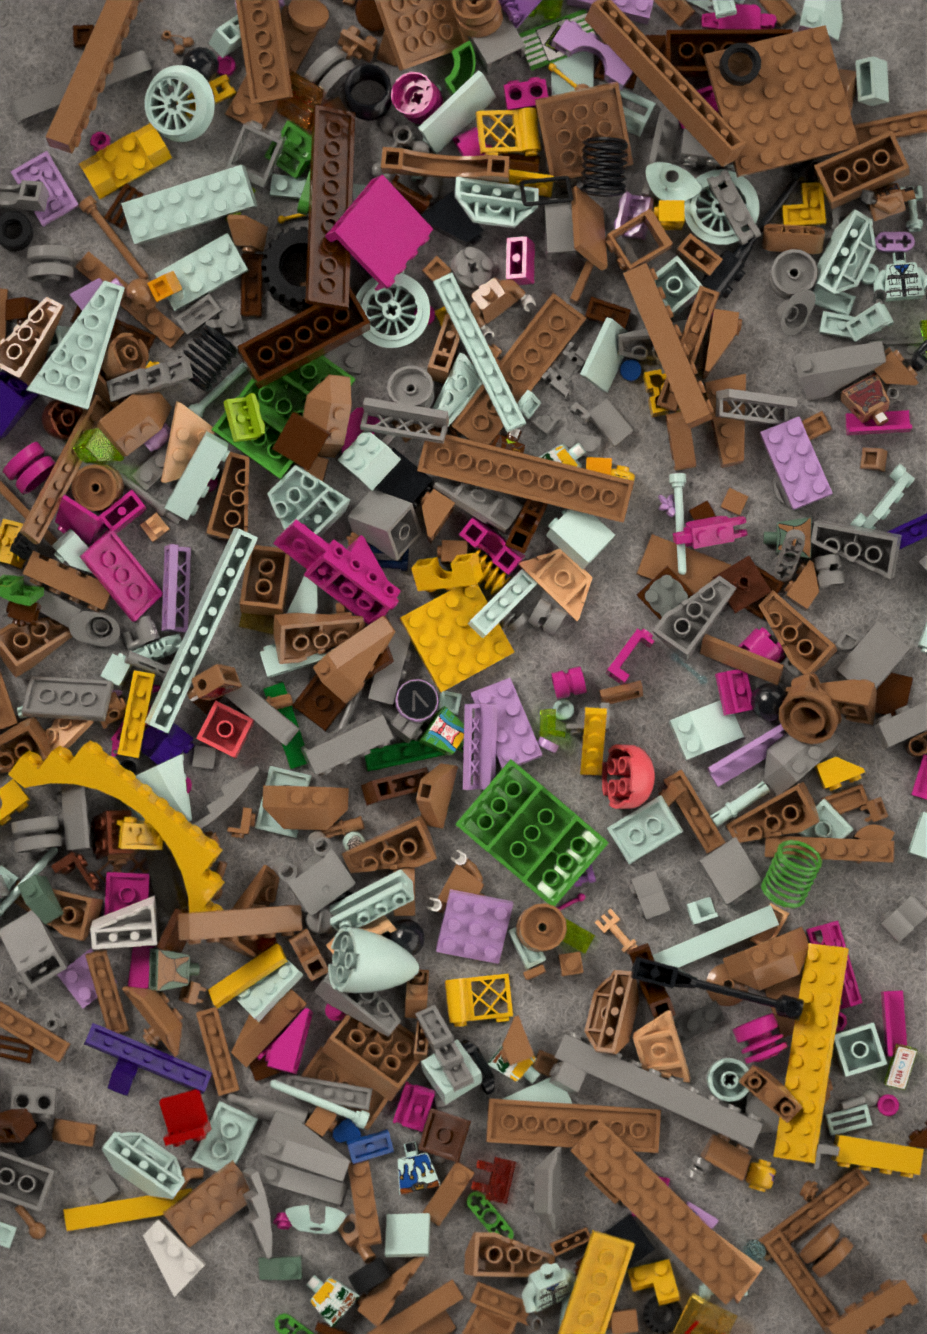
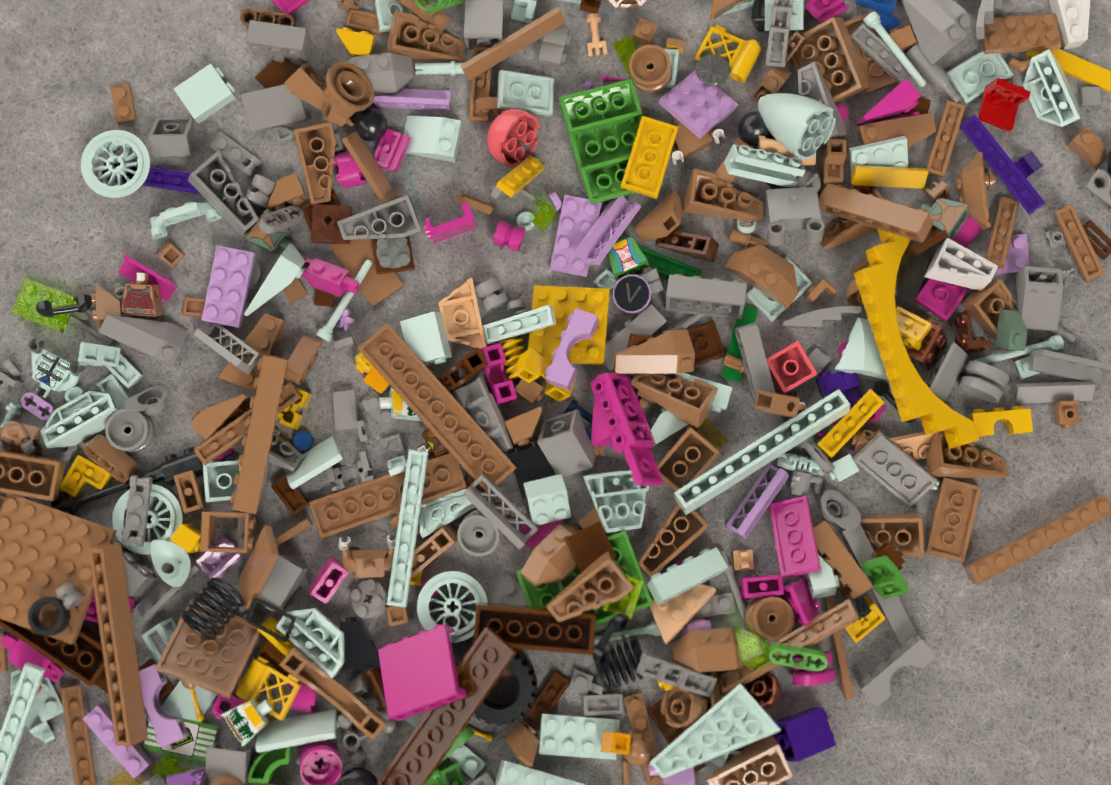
camera: 140 degrees left, 0 degrees up
(35, 465) = (792, 650): none -> bright green beam
(231, 352) = (600, 654): none -> black bar
(273, 408) = (594, 587): none -> medium nougat wedge
(433, 582) = (580, 327): none -> lavender arch
(482, 969) = (712, 70): none -> dark grey wheel
(485, 840) = (649, 157): none -> yellow tile
(507, 92) = (247, 720): none -> torso
(653, 481) = (344, 344): none -> light grey tile
(687, 865) = (513, 43): none -> medium nougat tile
(734, 93) = (69, 595): none -> light grey wheel
(751, 502) = (282, 274): none -> light aqua wedge
(879, 592) = (235, 154): none -> light grey plate

